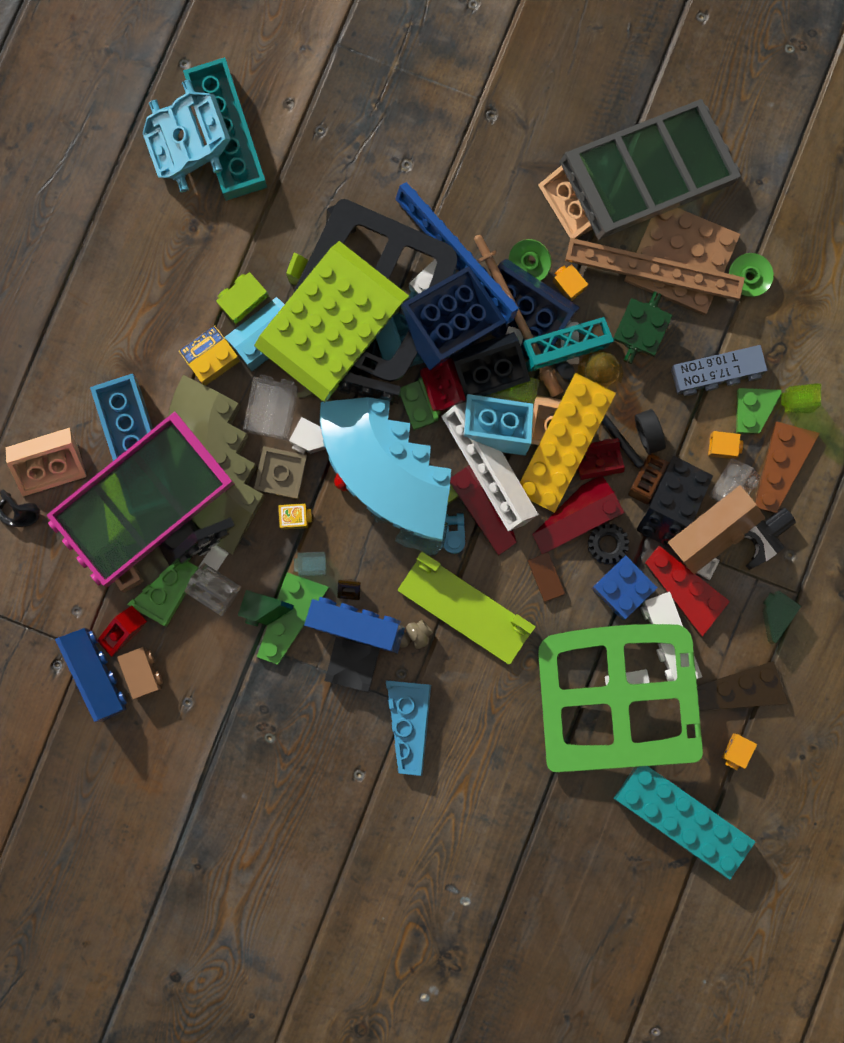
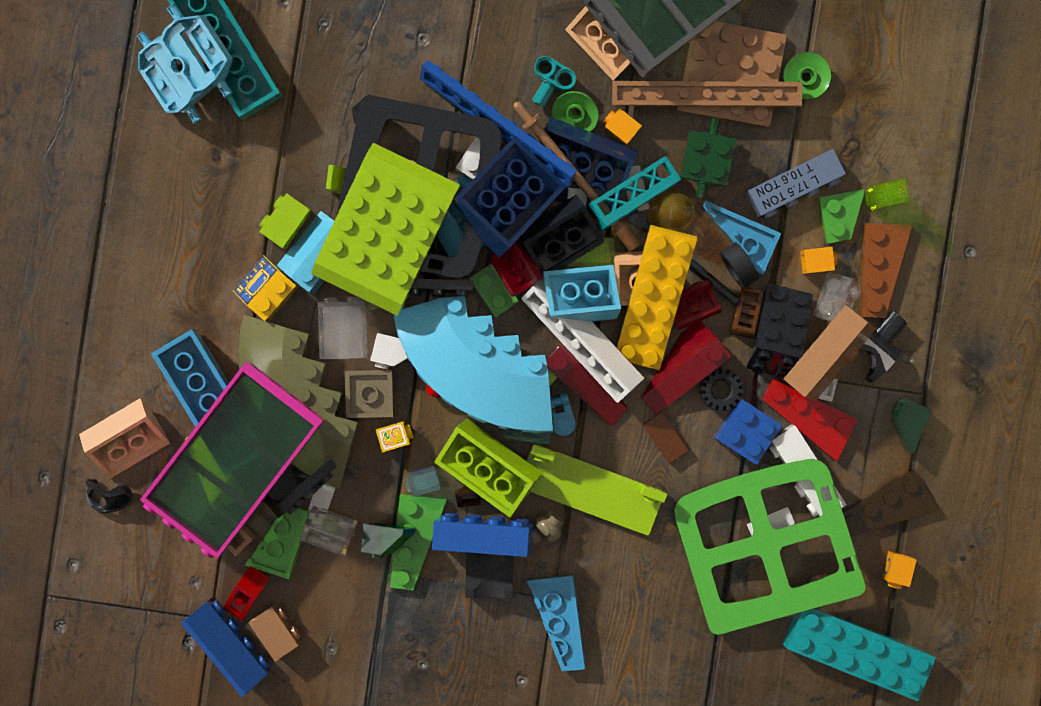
camera: 10 degrees left, 5 degrees up
(374, 564) = (488, 467): none -> lime slope
(514, 226) = (550, 80): none -> teal beam
(670, 411) = (753, 237): none -> dark azure wing

